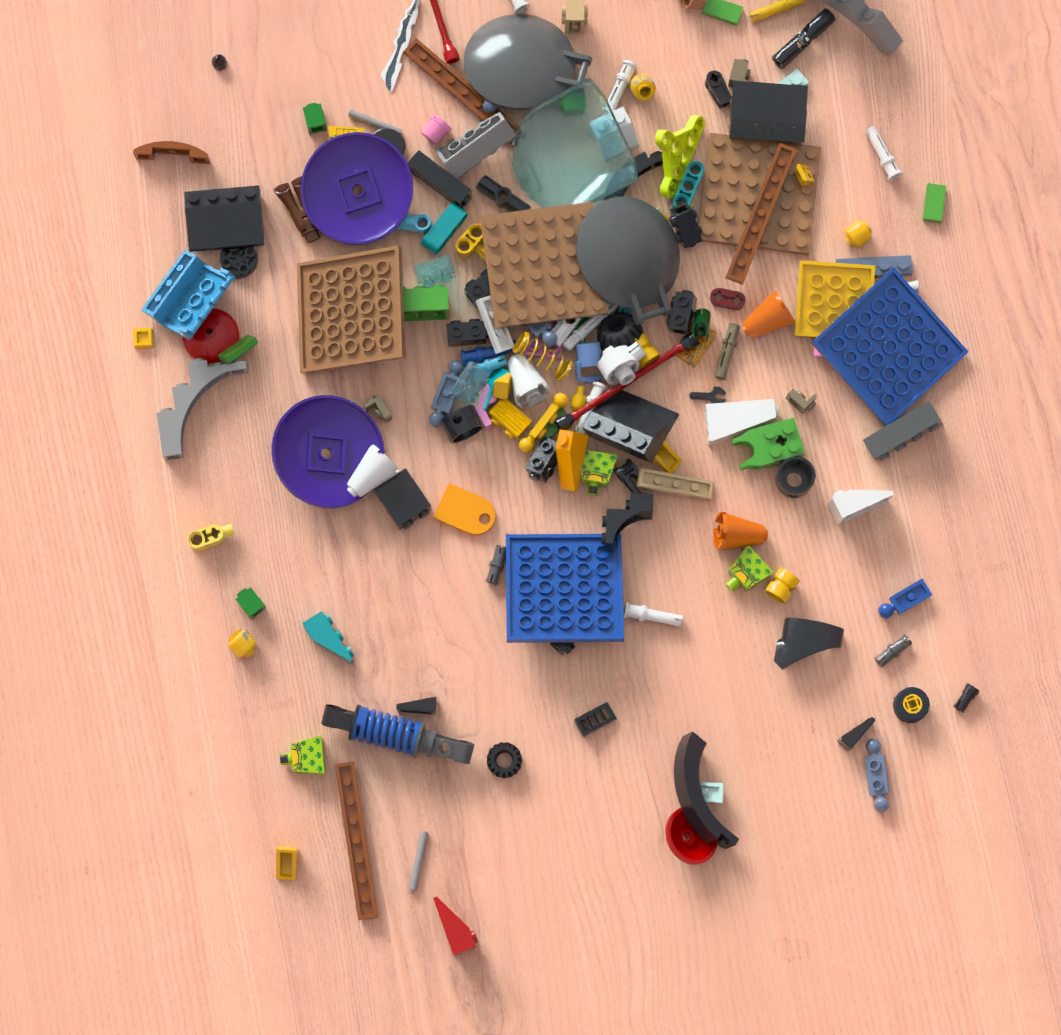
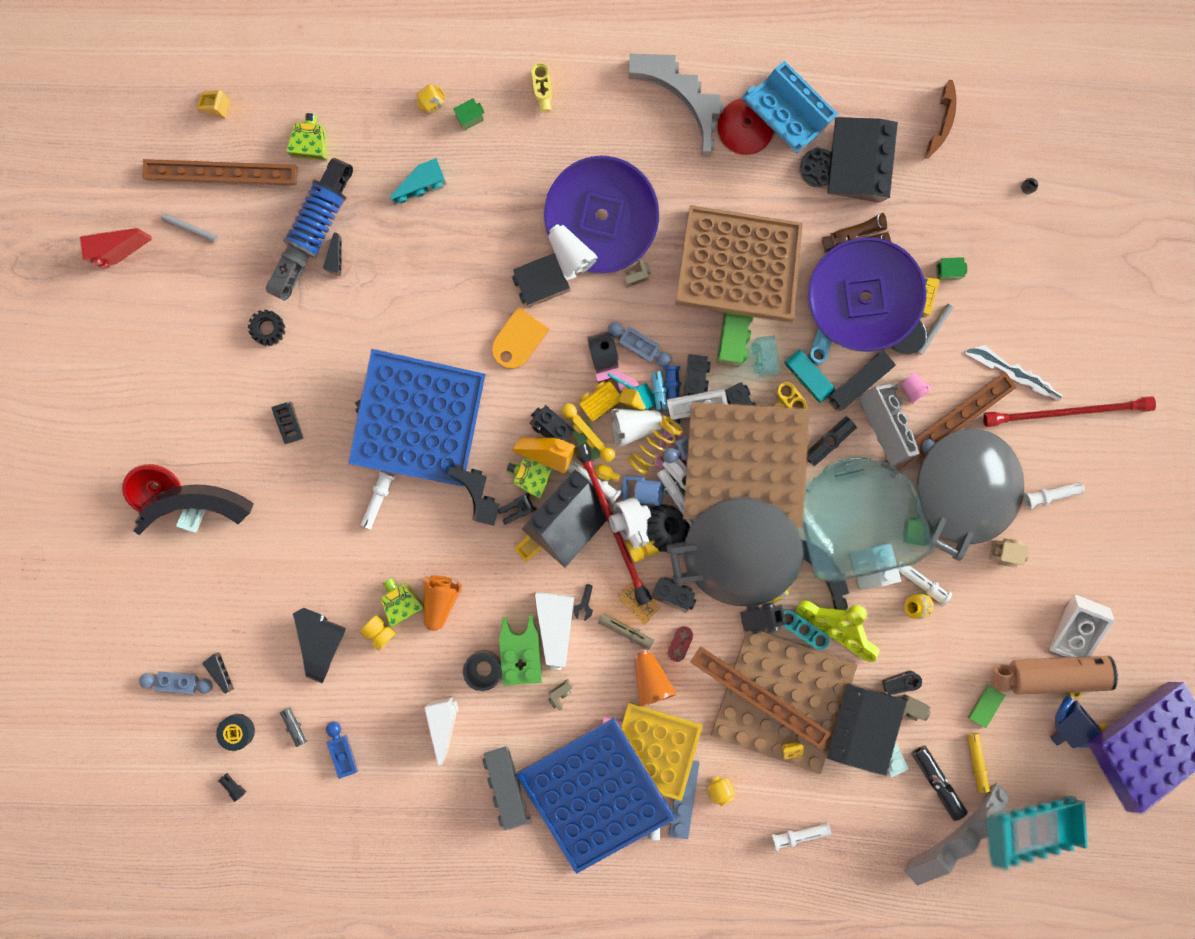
camera: 105 degrees right, 10 degrees up
(143, 338) = (756, 59): yellow tile -> none
(238, 349) = (725, 147): bright green tile -> none
(470, 383) = (641, 367): clear light blue brick -> none
(496, 565) = (458, 358): dark grey pin -> none
(675, 484) = (501, 550): tan tile -> none
(701, 323) = (657, 611): dark green piece -> none
(934, 202) = (738, 875): bright green tile -> none

